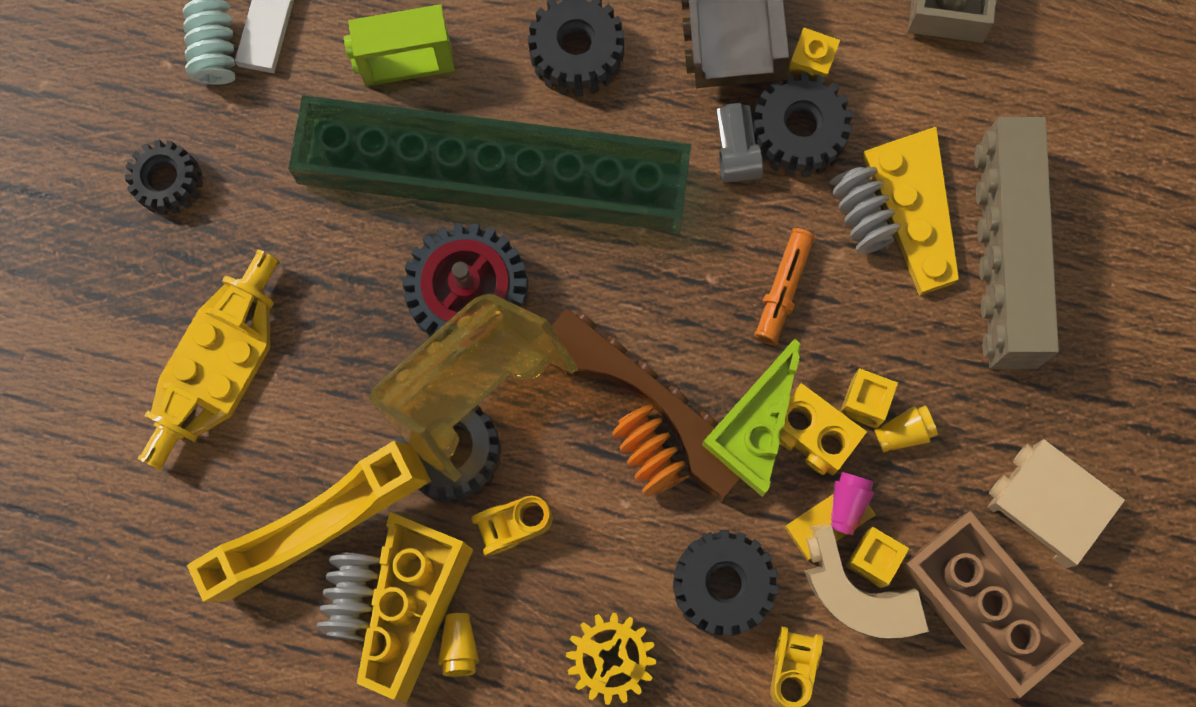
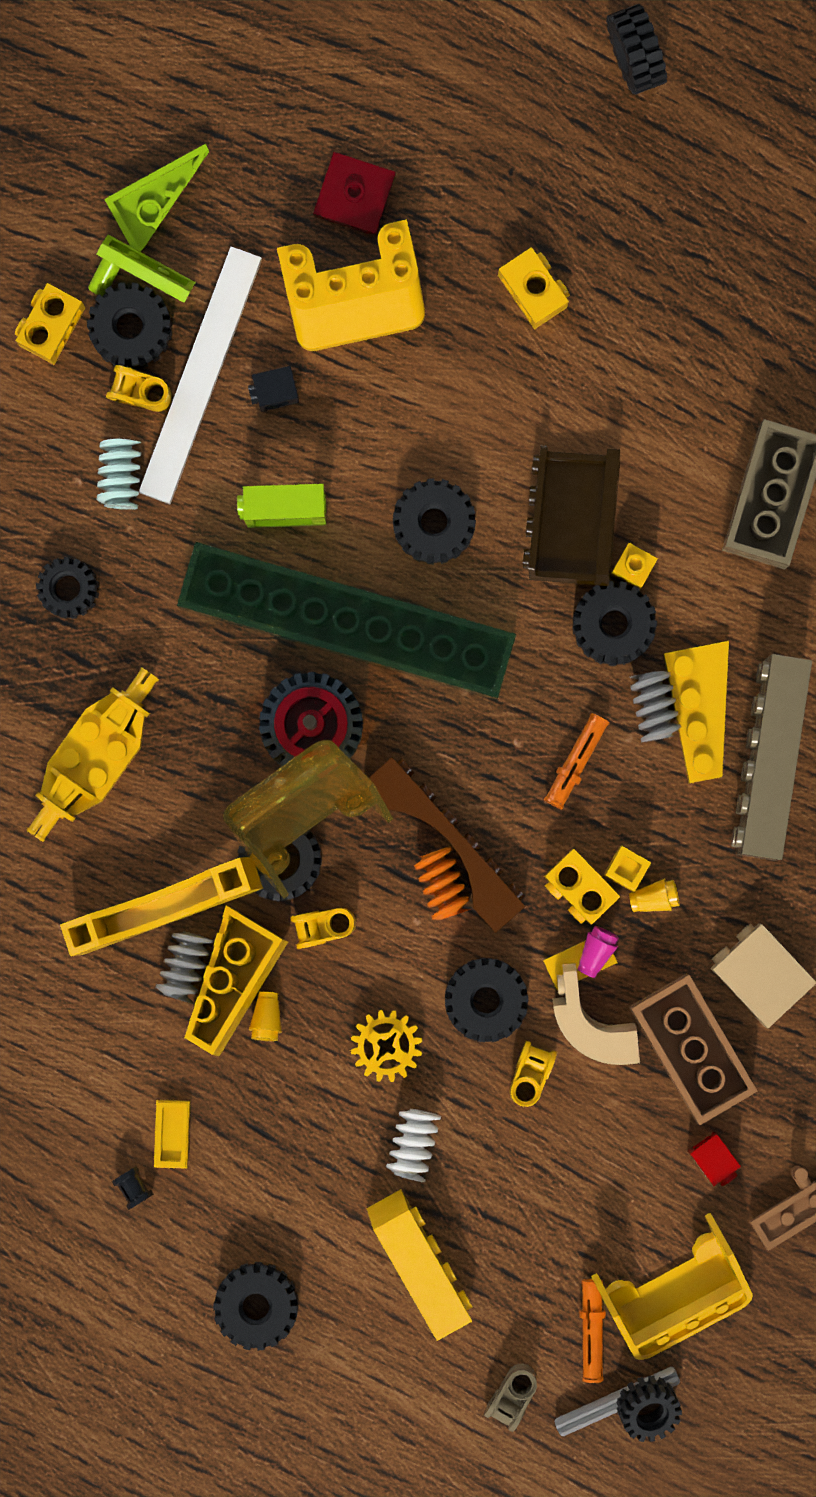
camera: 10 degrees right, 10 degrees up
(738, 154) = (557, 641): dark grey piece -> none
(751, 431) = (526, 883): lime wing -> none
(877, 557) = (610, 998): yellow brick -> none

